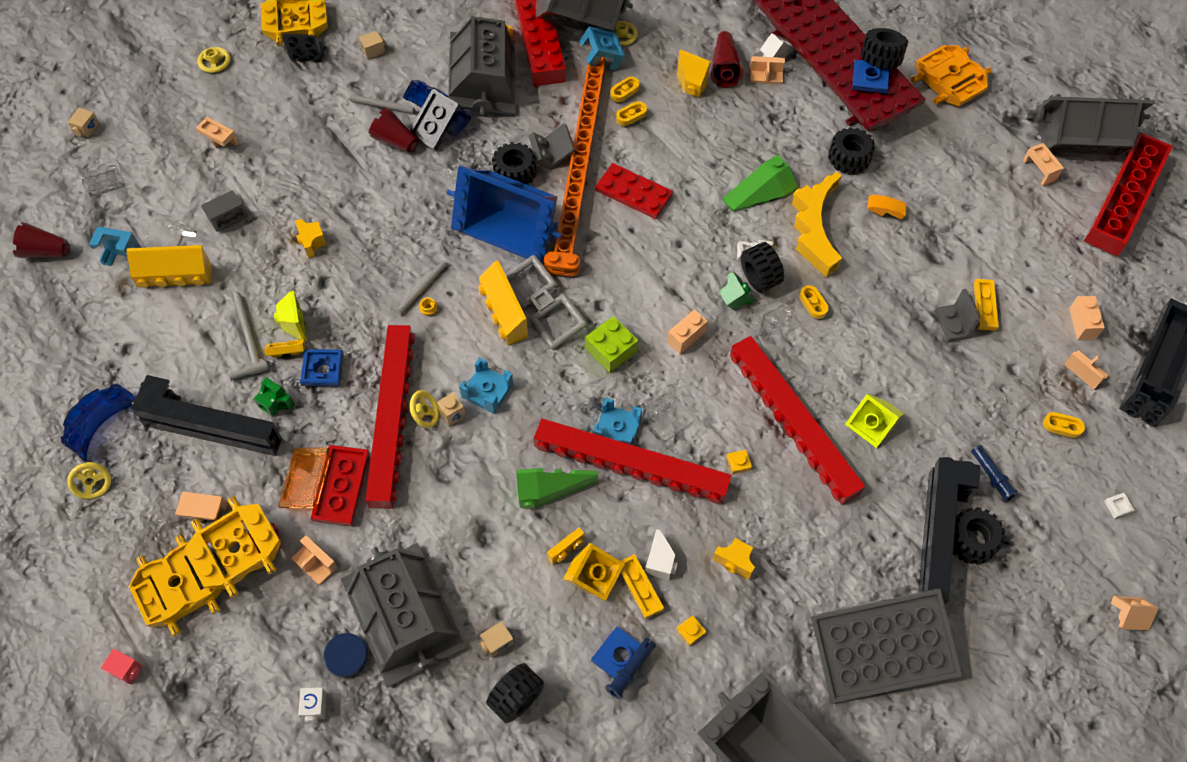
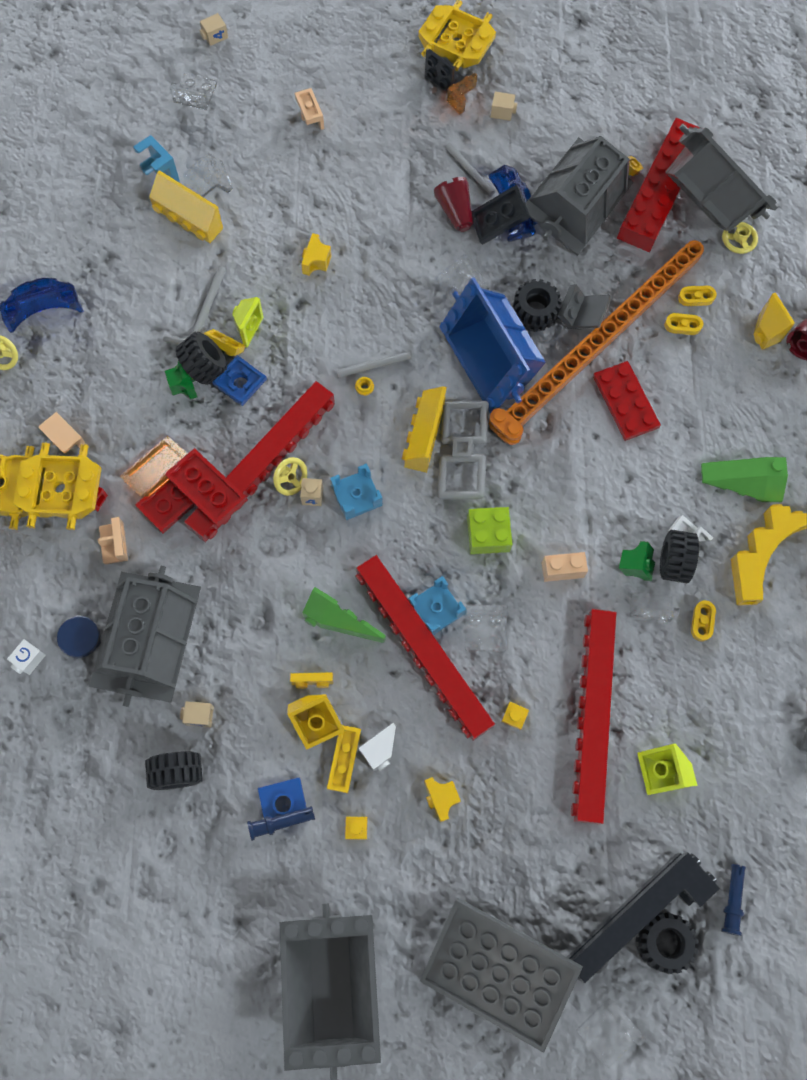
camera: 35 degrees right, 10 degrees up
(38, 243) = (102, 117): dark red cone -> none
(164, 411) = (91, 326): black brick -> none
(211, 55) = (360, 31): light yellow piece -> none
(224, 210) = (266, 184): dark grey bracket -> none
(279, 367) = (201, 358): none -> black tyre
(328, 57) = (455, 92): none -> clear orange bracket
(363, 460) = (206, 487): none -> red plate
(603, 45) = (709, 240): dark azure panel -> none

